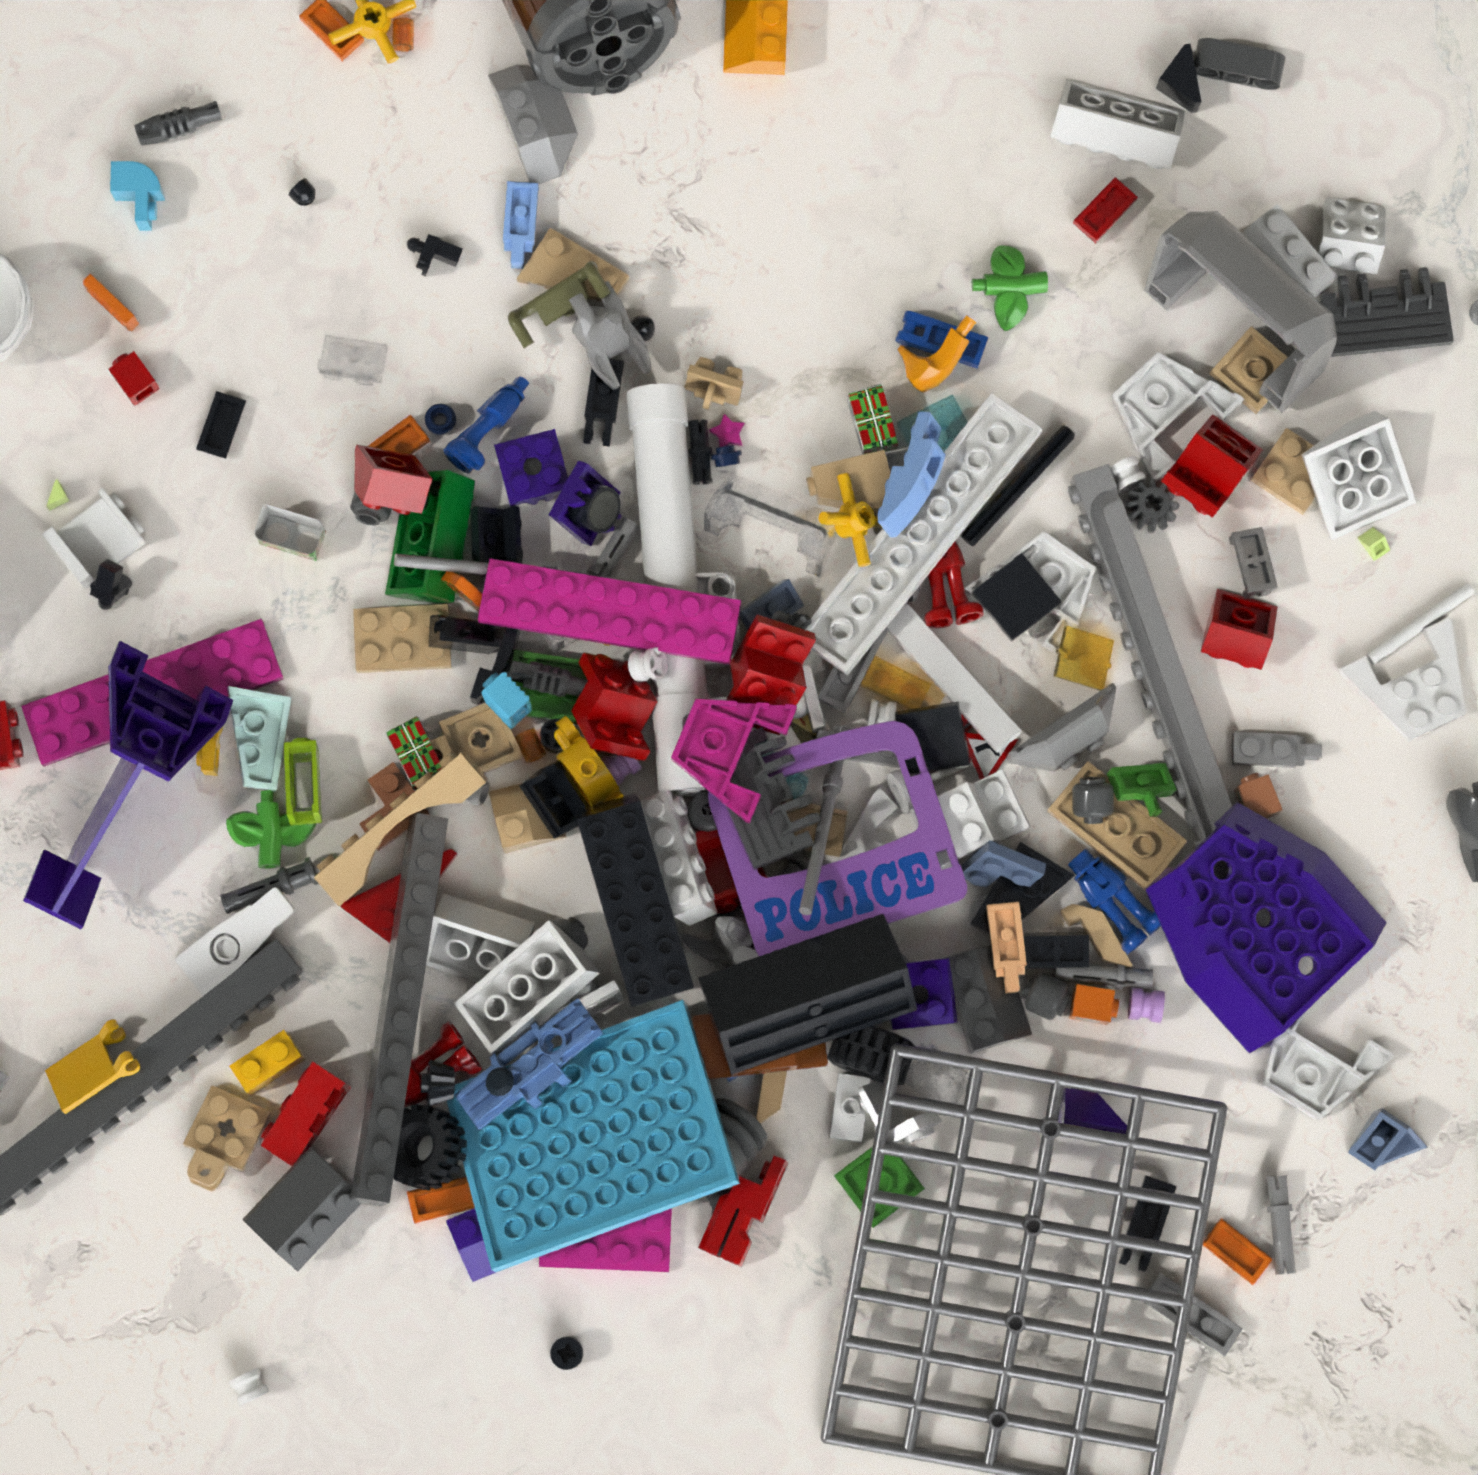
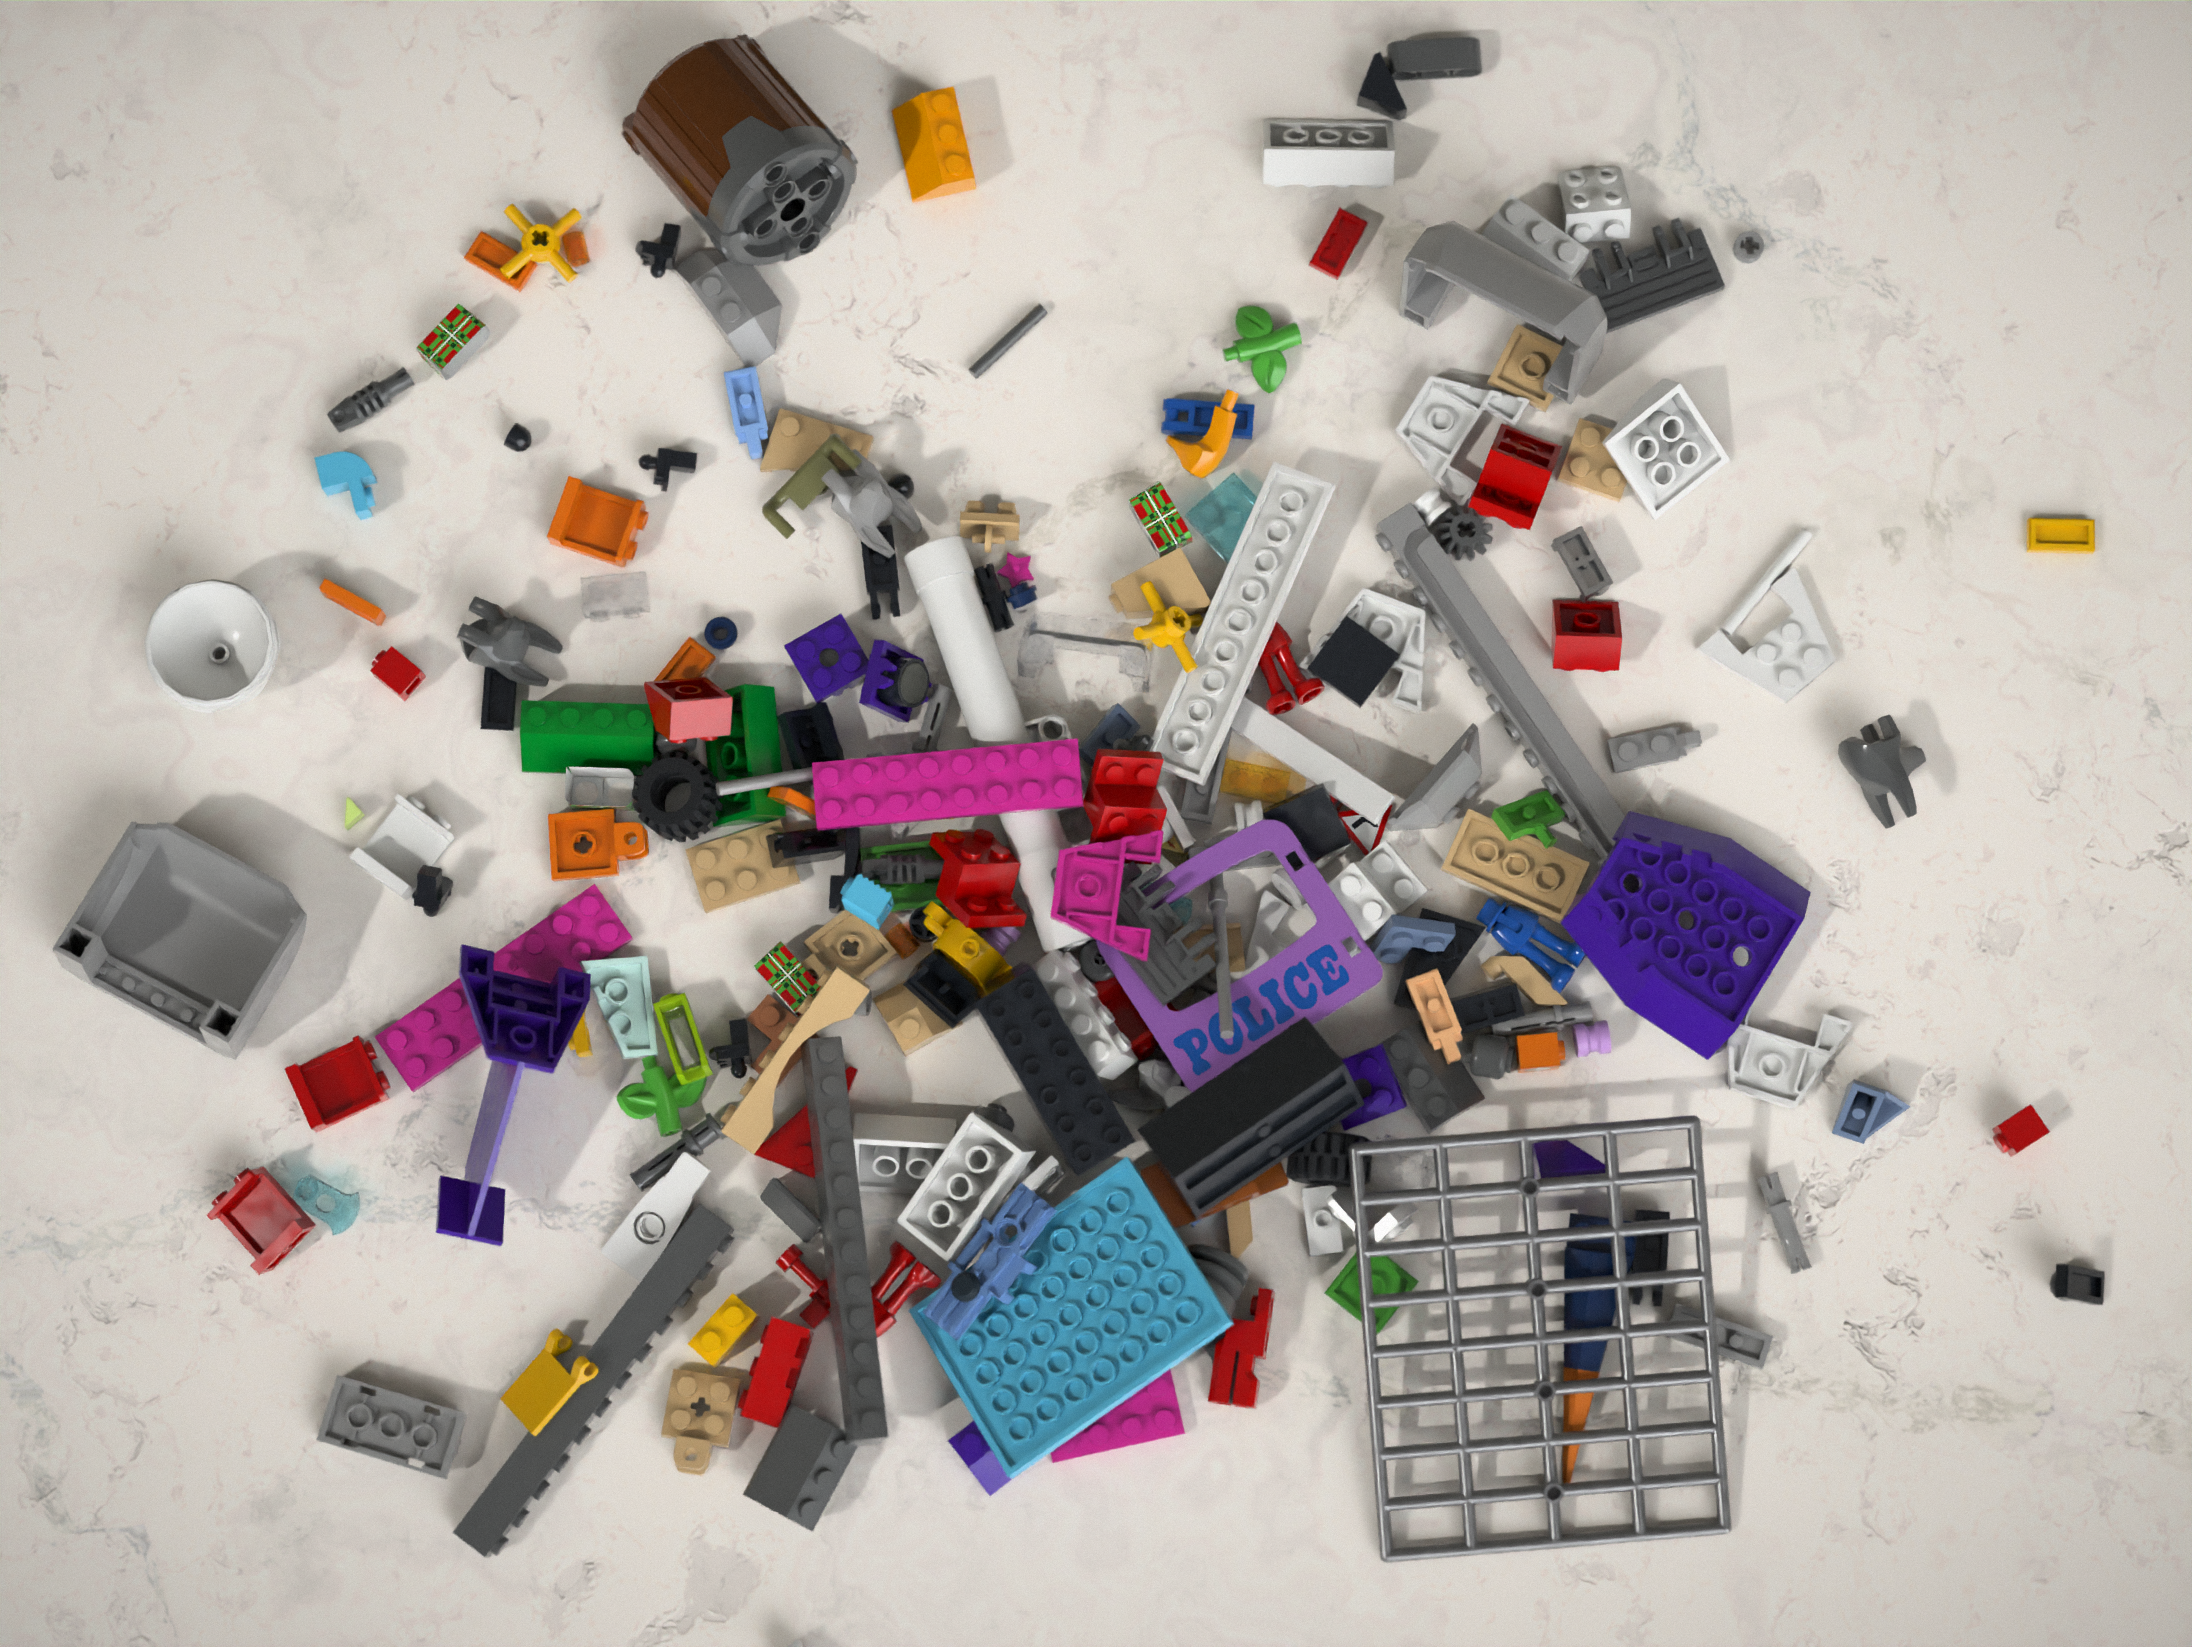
camera: 10 degrees left, 0 degrees up
(237, 374) = (502, 642): none -> dark grey piece
(267, 89) = (453, 341): none -> piece
(284, 585) = (608, 840): none -> orange plate
(290, 480) = (585, 736): none -> green slope
(346, 539) = (657, 783): none -> black tyre
(348, 809) = (737, 1053): none -> black piece
(354, 289) = (597, 523): none -> orange panel
(360, 967) = (791, 1210): none -> dark grey slope
(360, 1065) = (819, 1308): none -> red bar
(438, 1083) = (903, 1304): black piece -> none
(440, 1202) = (936, 1422): orange tile -> none
(445, 1153) = (928, 1378): black tyre -> none
(480, 59) = (663, 254): none -> black piece
(495, 413) = (774, 613): blue piece -> none
(571, 1354) = (1101, 1544): black wheel -> none
(647, 664) = (1001, 828): white wheel -> none
(776, 220) = (1007, 341): none -> dark grey bar
(912, 483) = (1219, 573): light blue slope -> none
(1018, 485) = (1324, 547): black axle -> none
(1071, 1258) = (1582, 1311): none -> dark blue plate
(1083, 658) = (1437, 705): clear yellow piece -> none
(1093, 799) = (1484, 846): dark grey head -> none
(1236, 1251) = (1747, 1261): orange tile -> none
(1258, 795) = (1649, 798): nougat brick -> none
(1374, 543) = (1698, 512): yellowish green piece -> none

